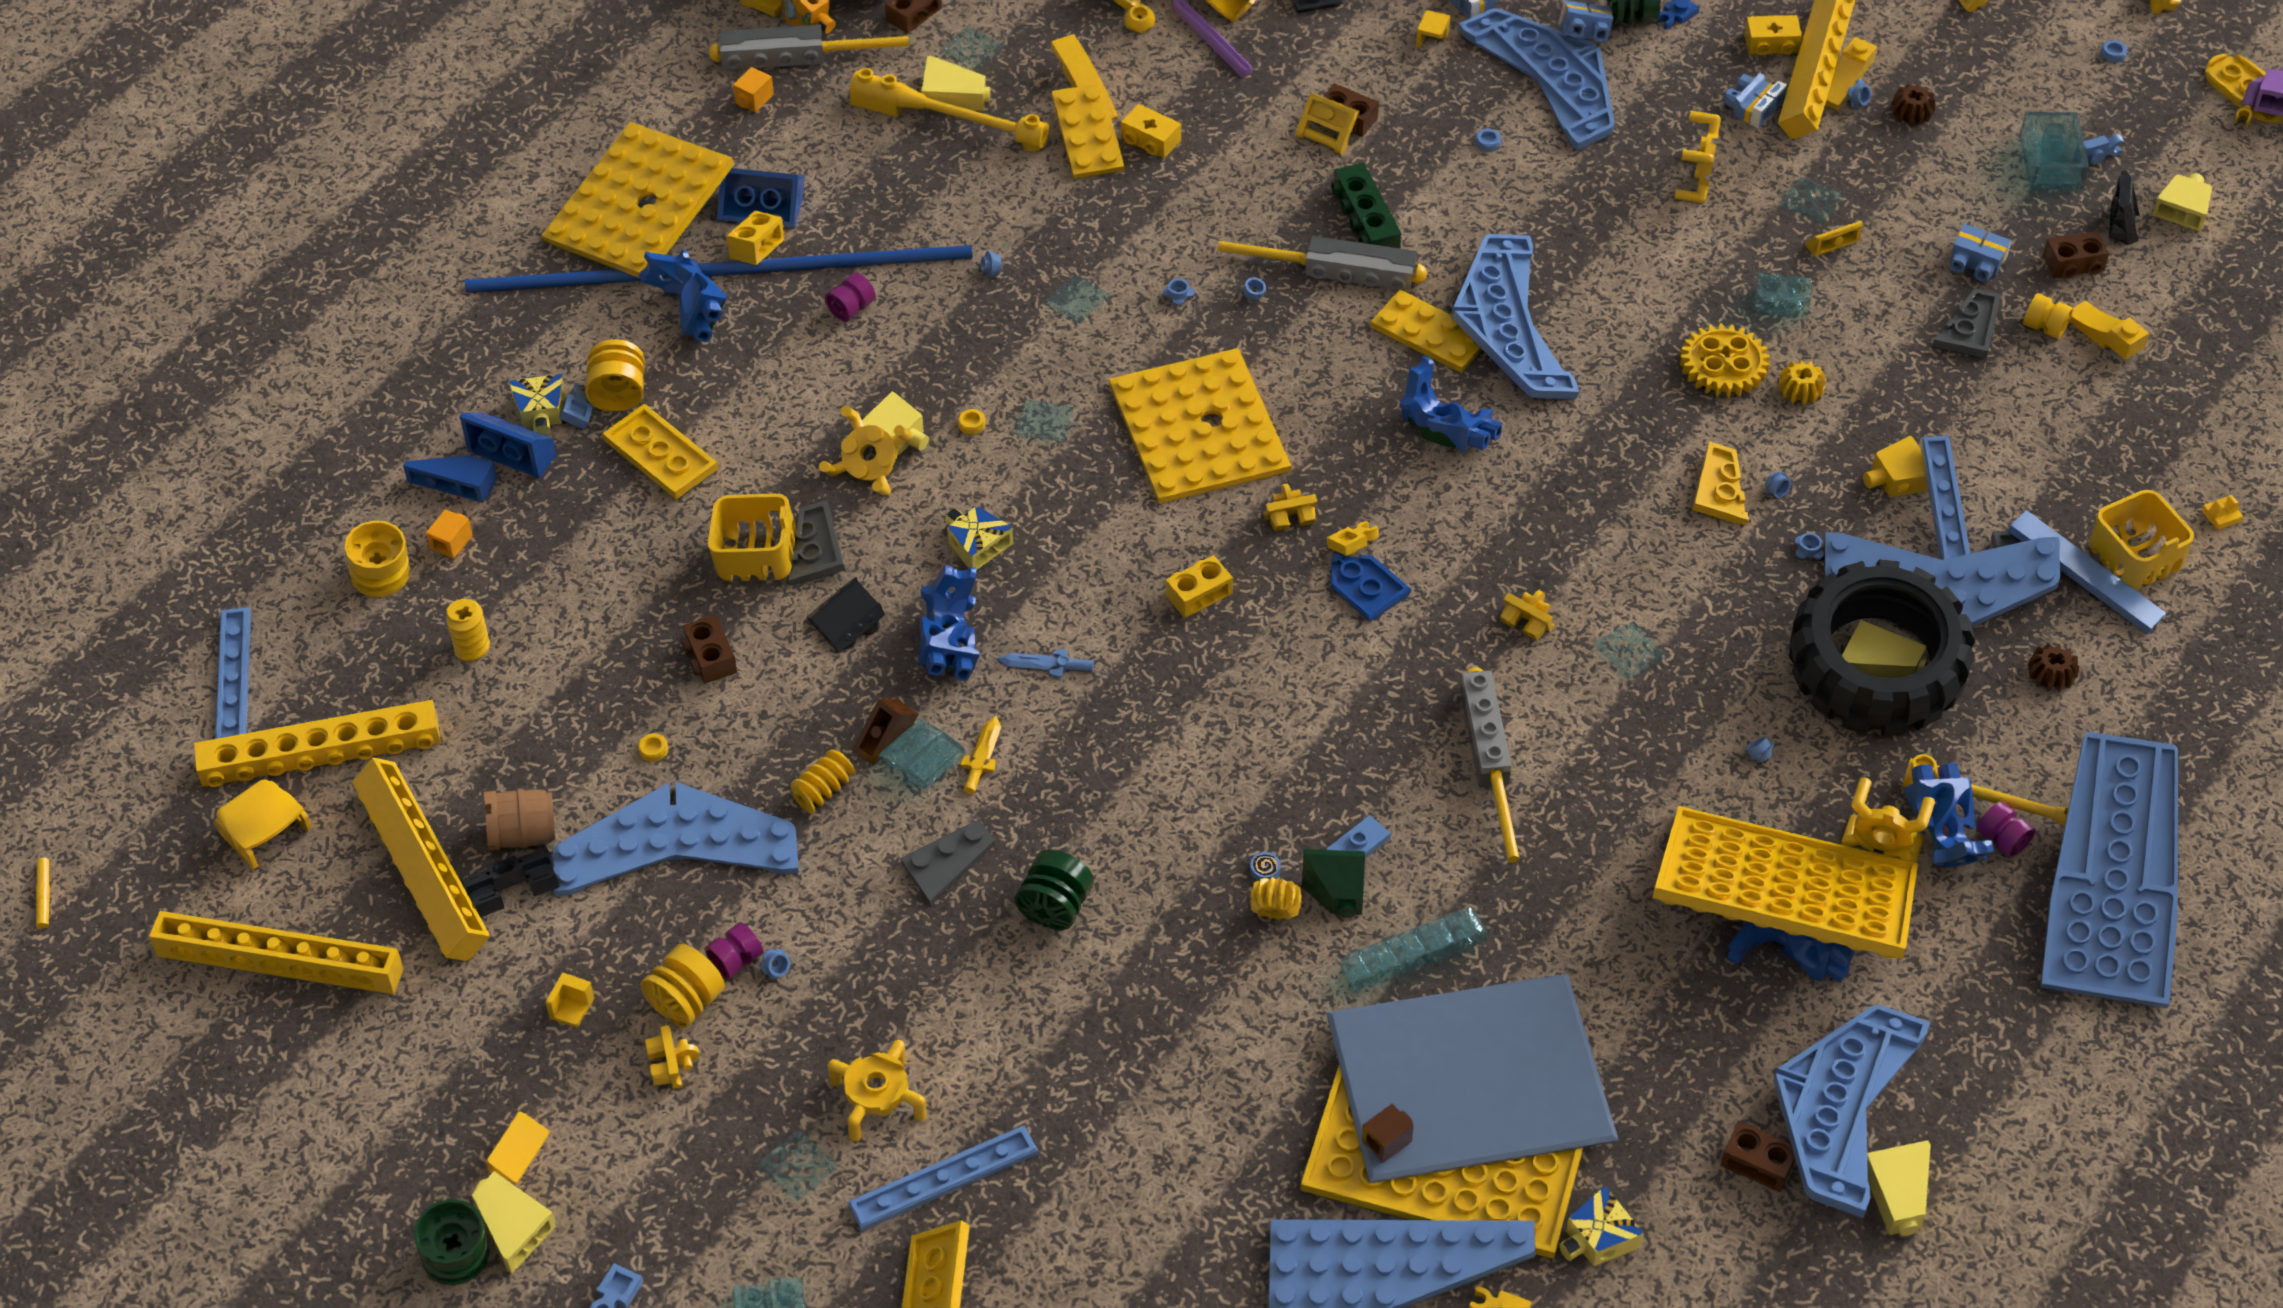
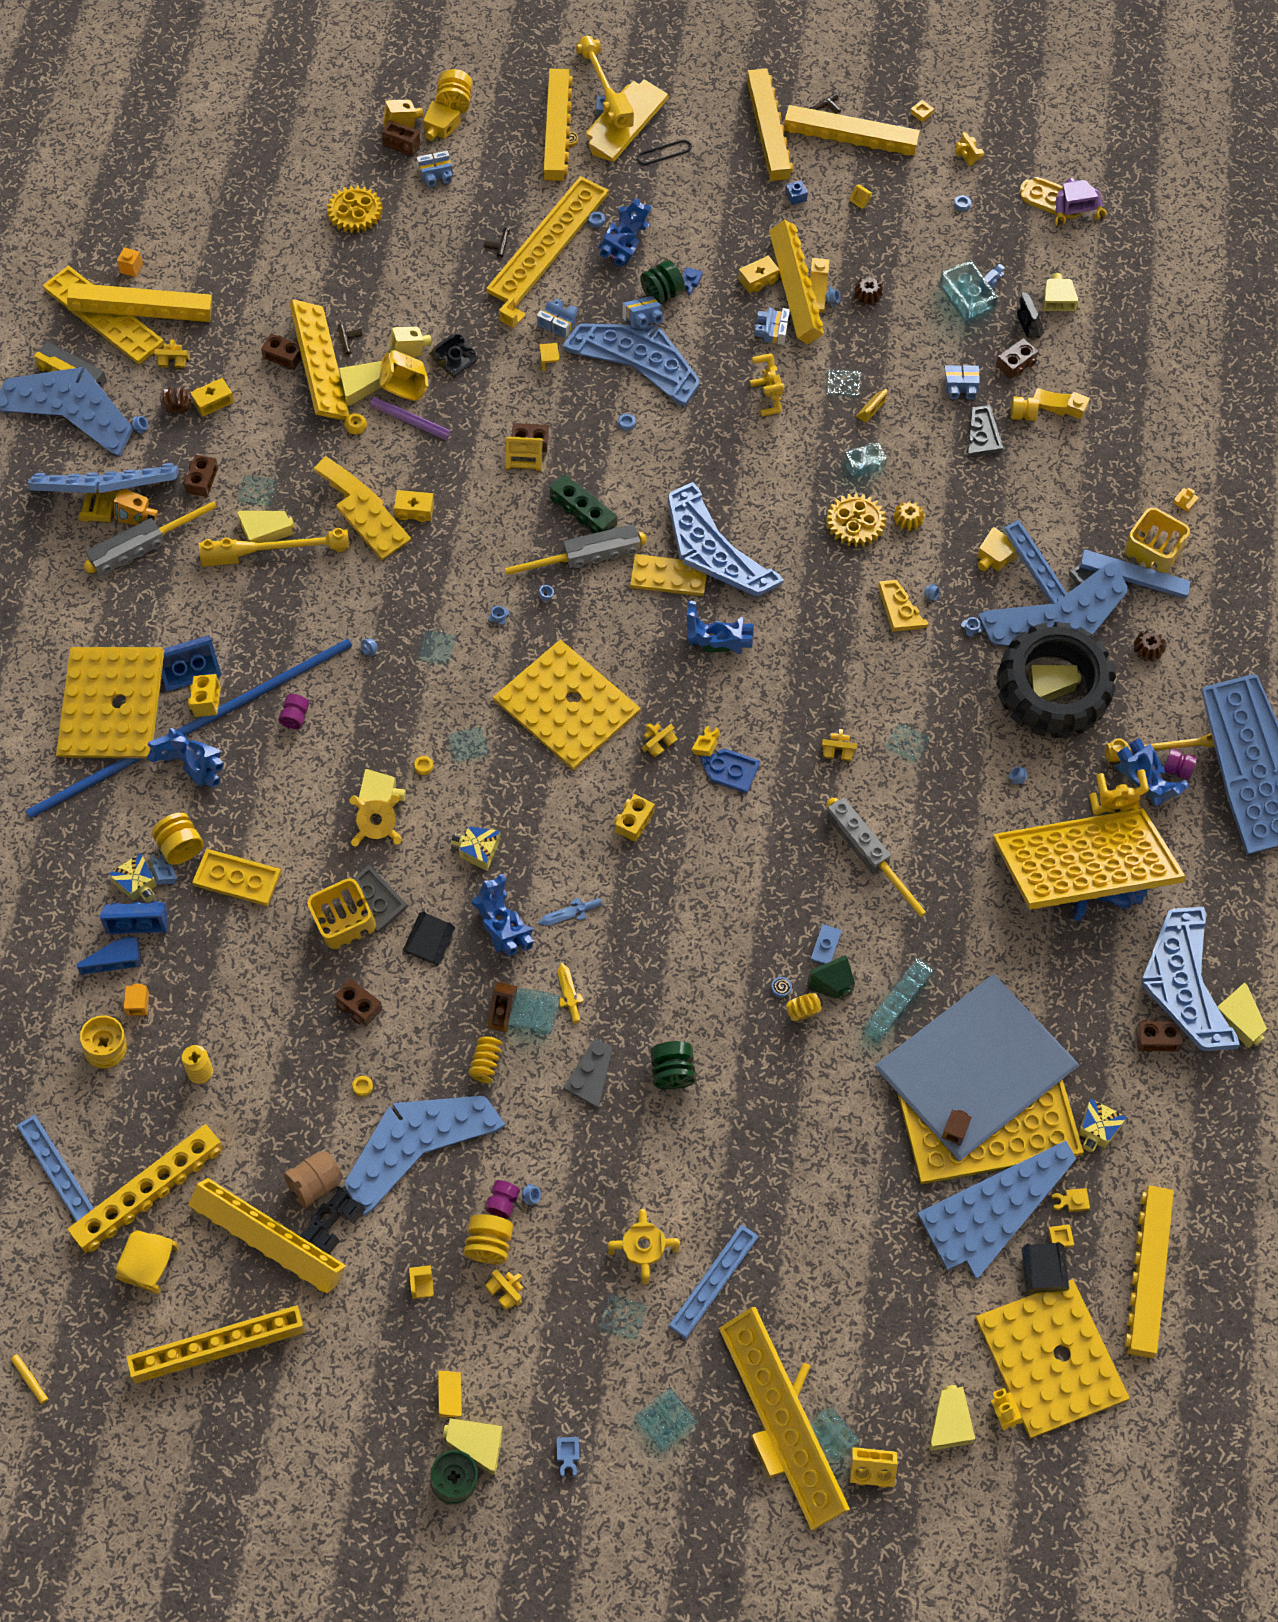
camera: 30 degrees left, 10 degrees up
(753, 89) = (132, 584): light orange brick -> none

